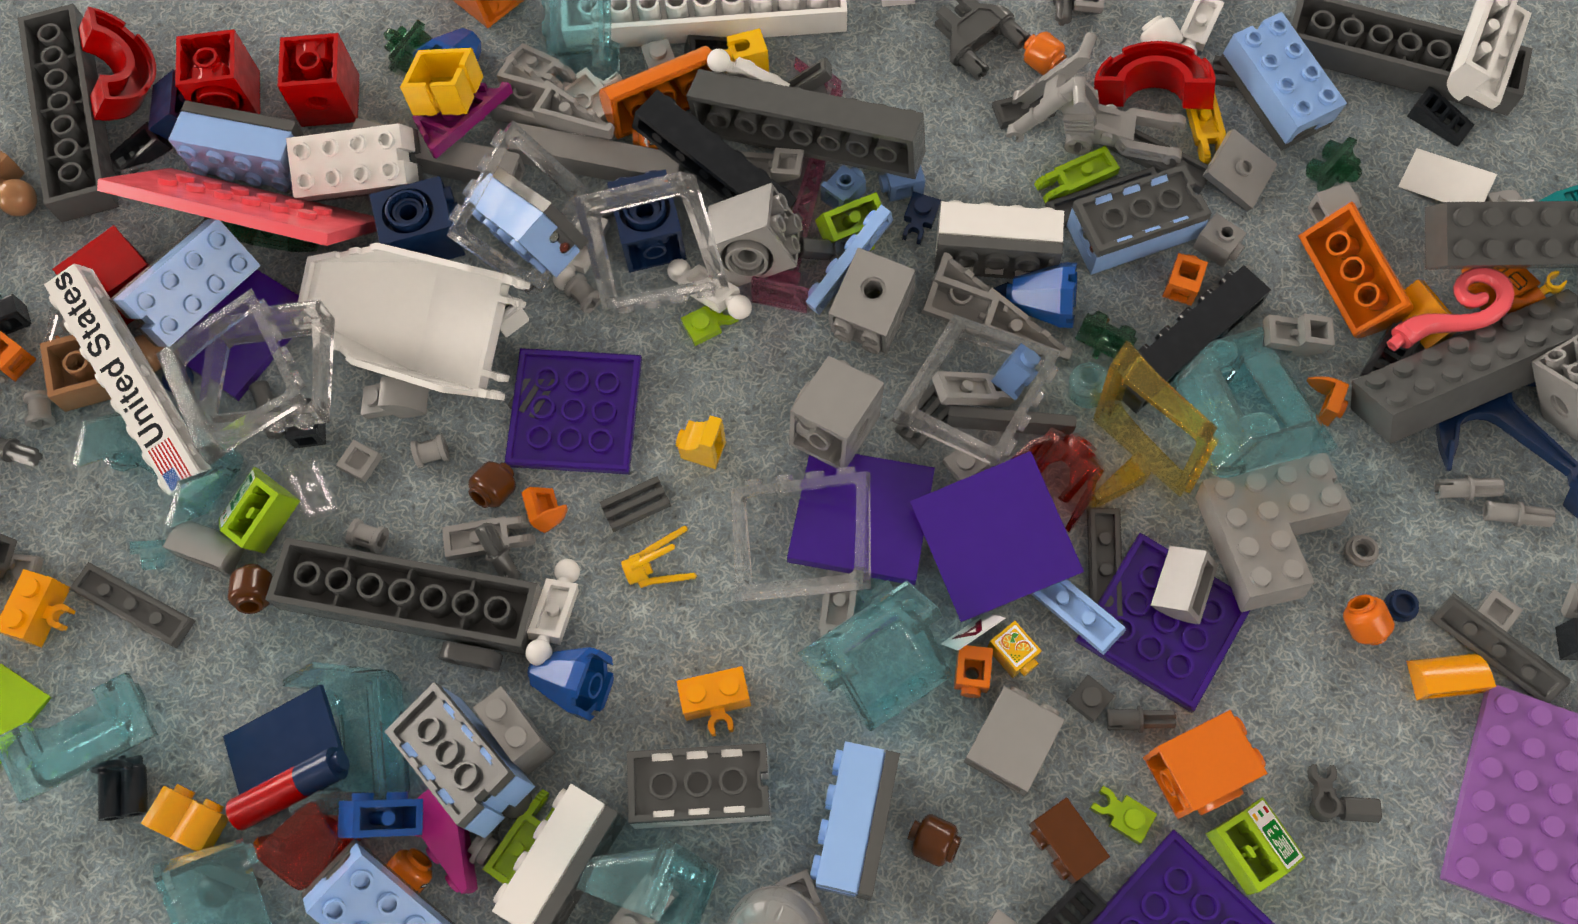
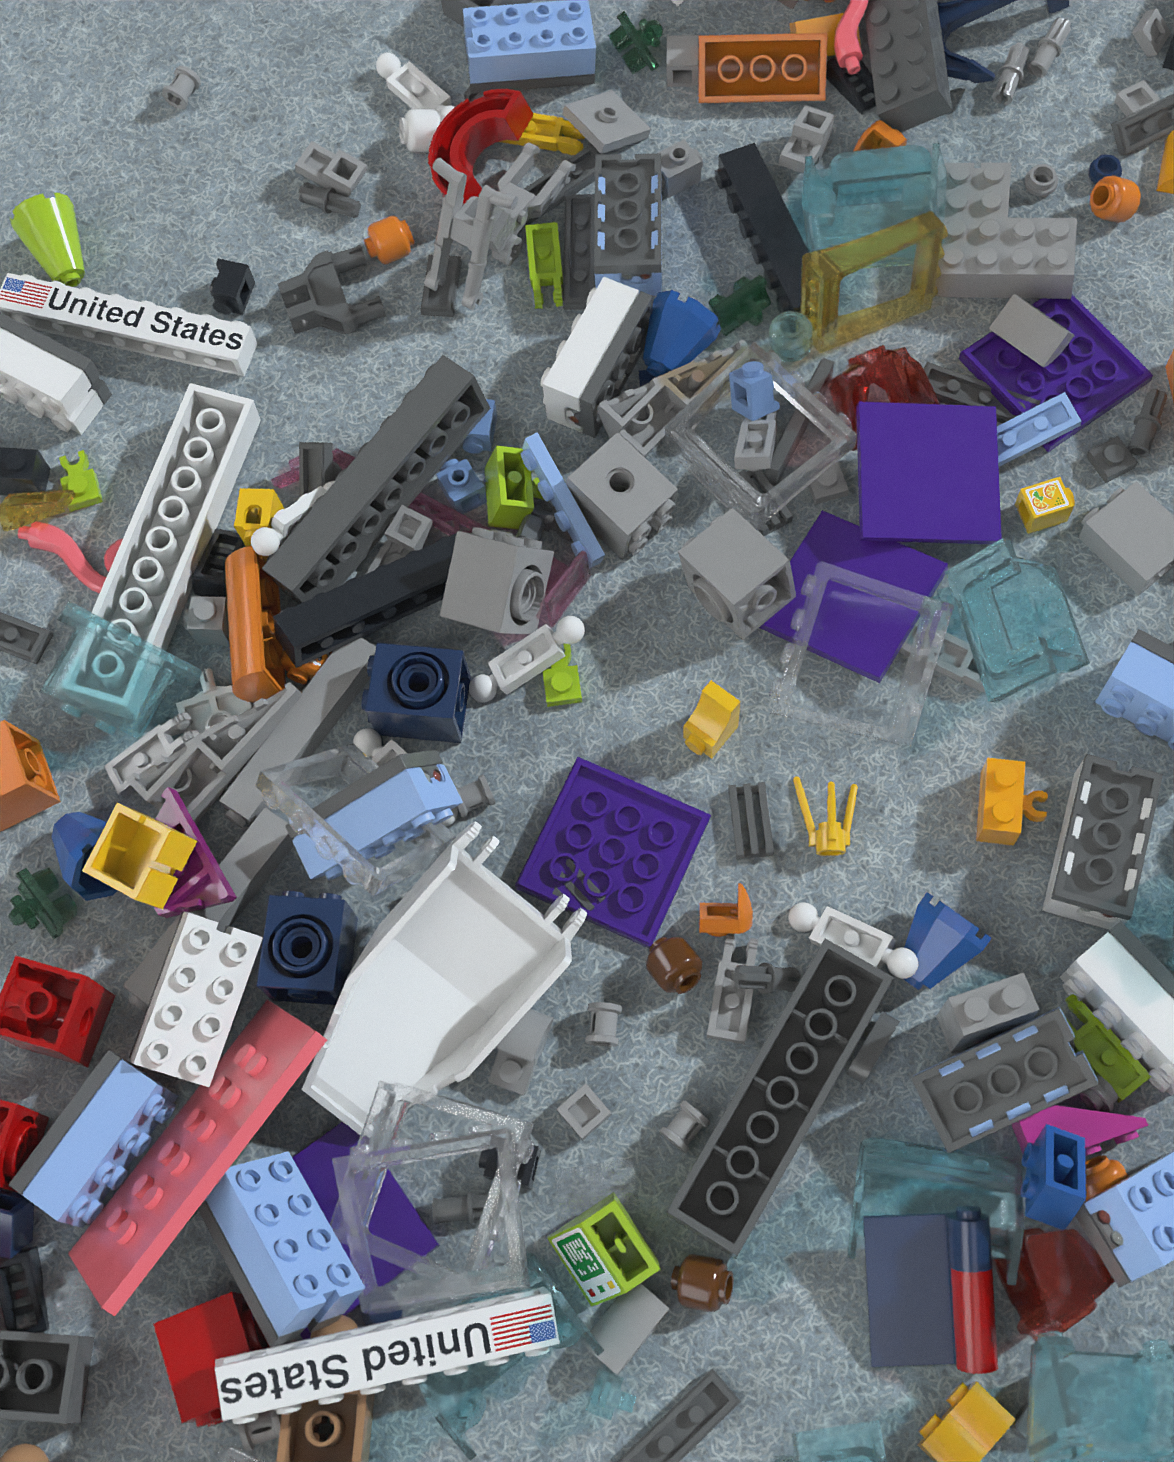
camera: 65 degrees left, 0 degrees up
(594, 205) = (415, 669): clear windscreen -> none
(920, 213) = (521, 422): dark blue plate -> none
(972, 631) = (1020, 527): white sticker -> none
(977, 659) = (1055, 547): orange brick -> none
(1126, 478) = (896, 333): clear yellow slope -> none
(1185, 279) = (706, 212): orange brick -> none

